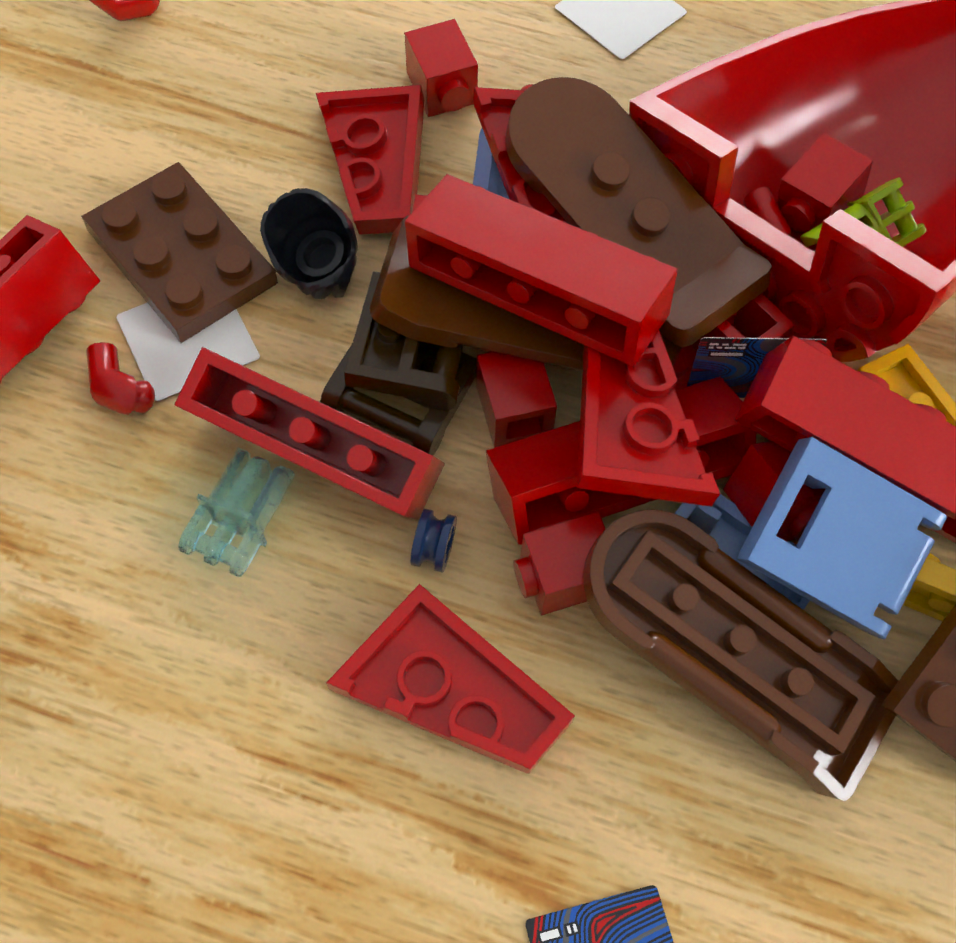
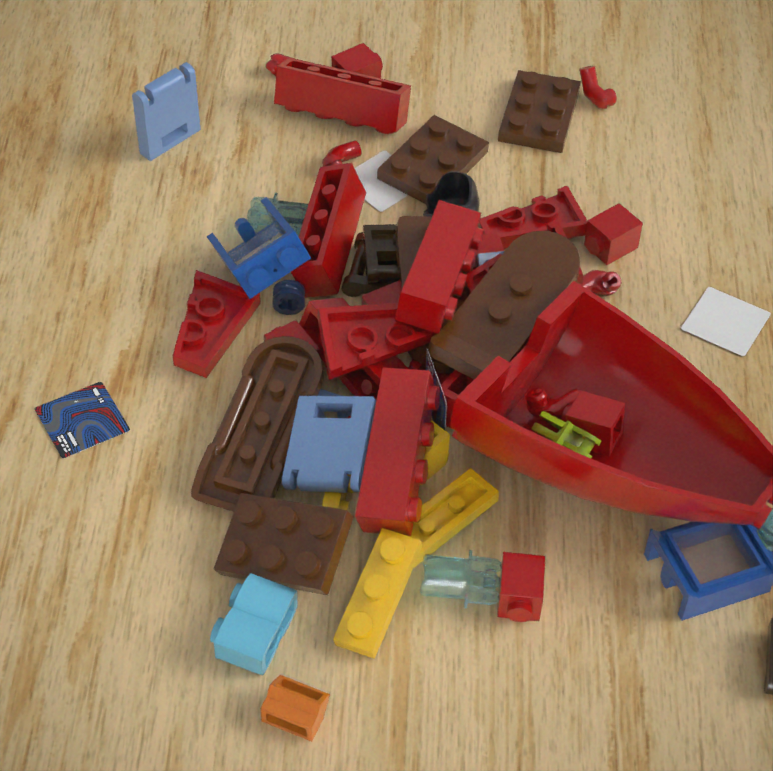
camera: 75 degrees right, 15 degrees down
(129, 82) = (539, 111): none -> reddish brown plate
(350, 550) = (263, 255): none -> blue window

